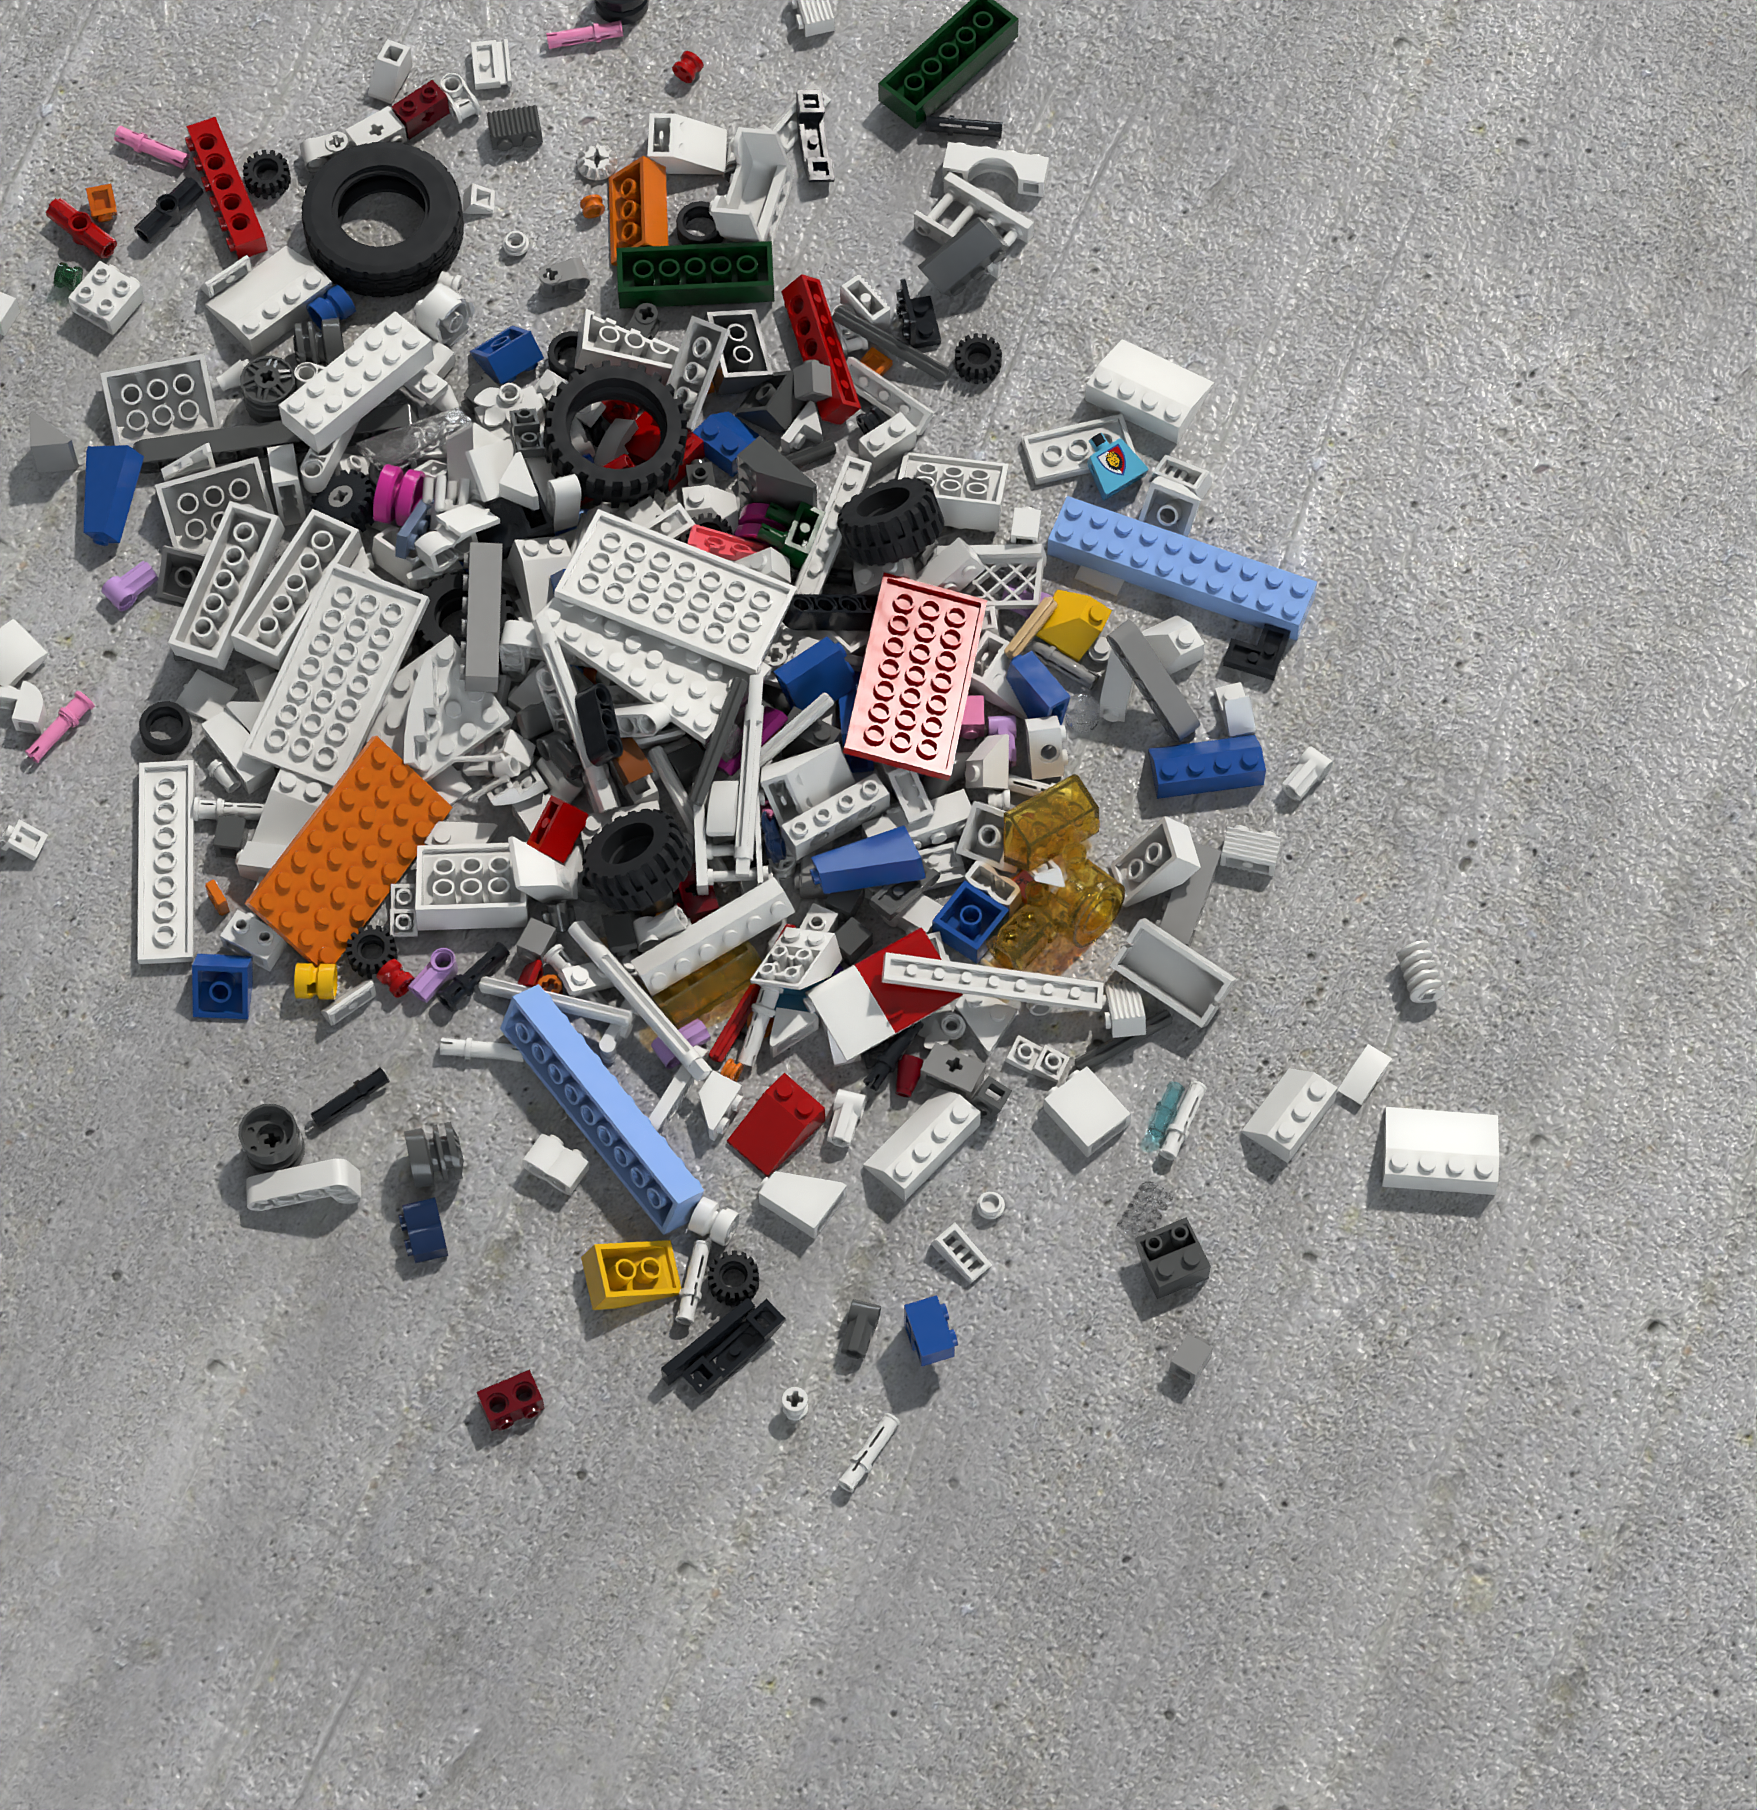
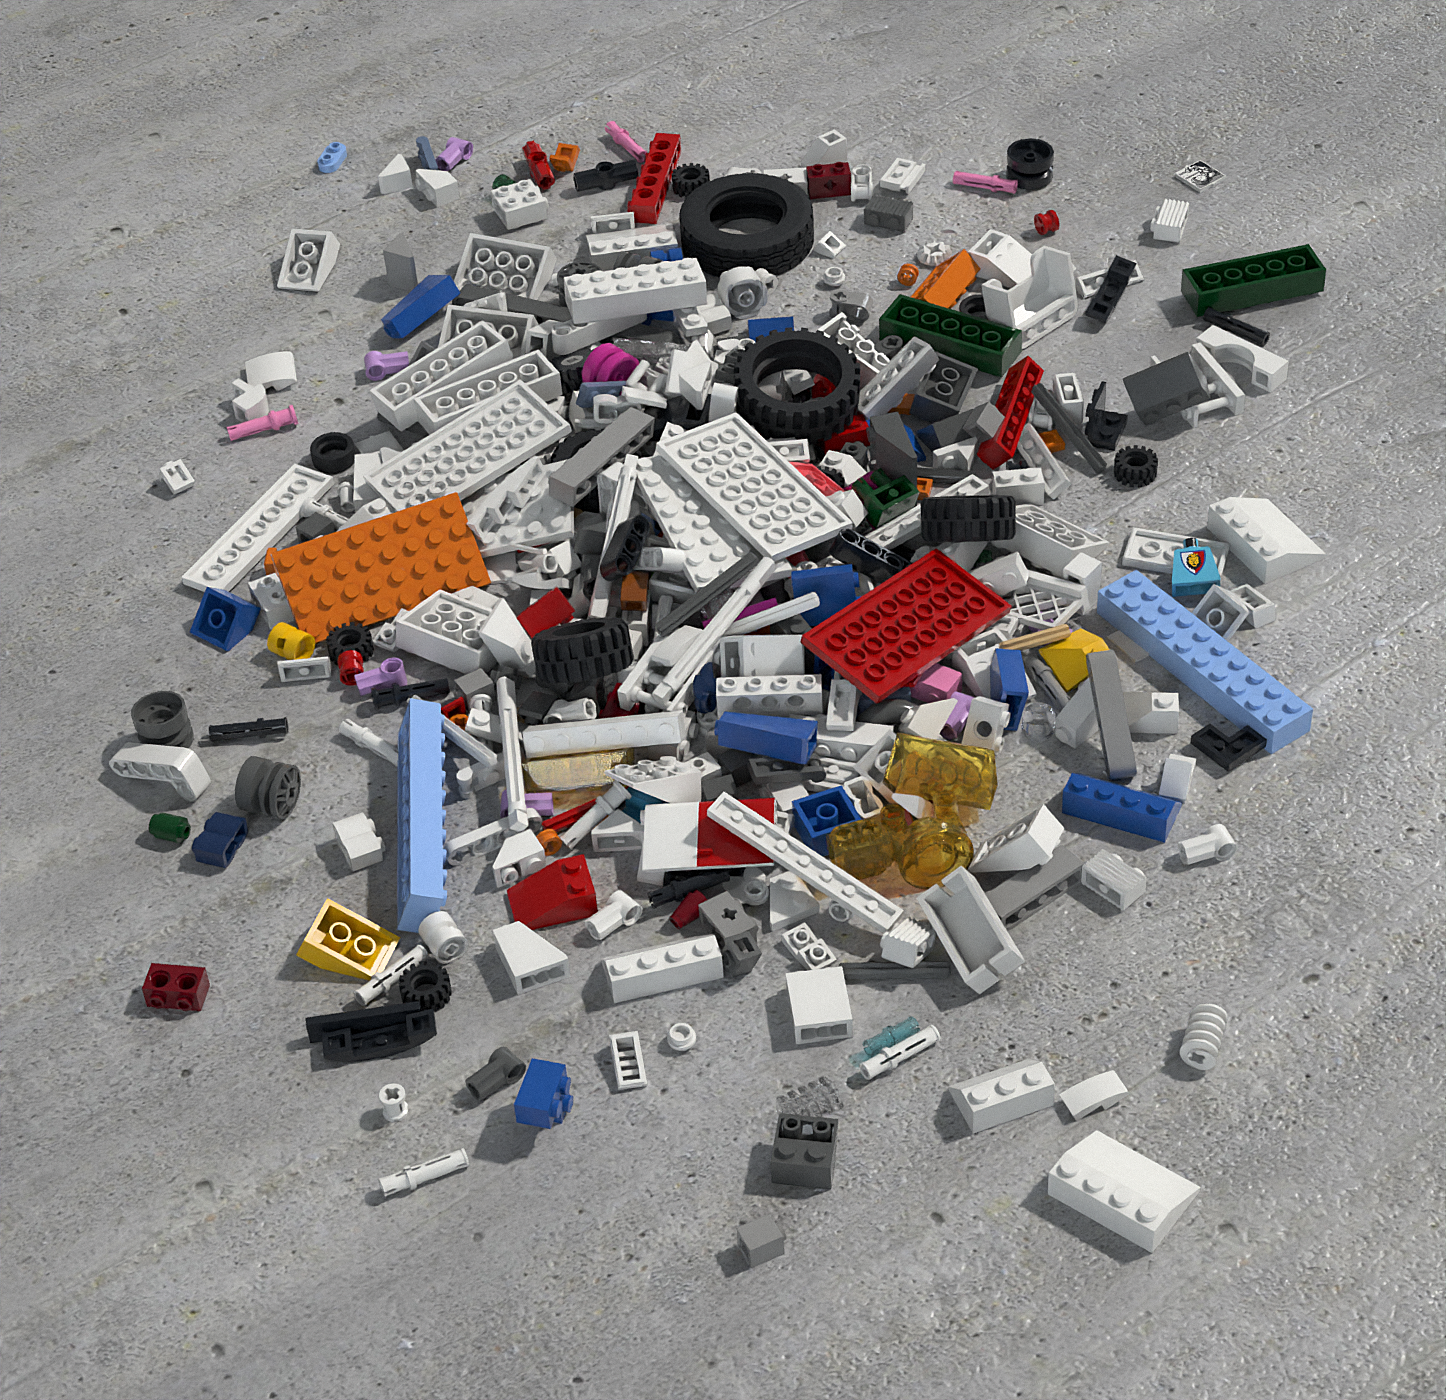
camera: 35 degrees right, 20 degrees down
(365, 1243) = (169, 827): none -> dark green brick

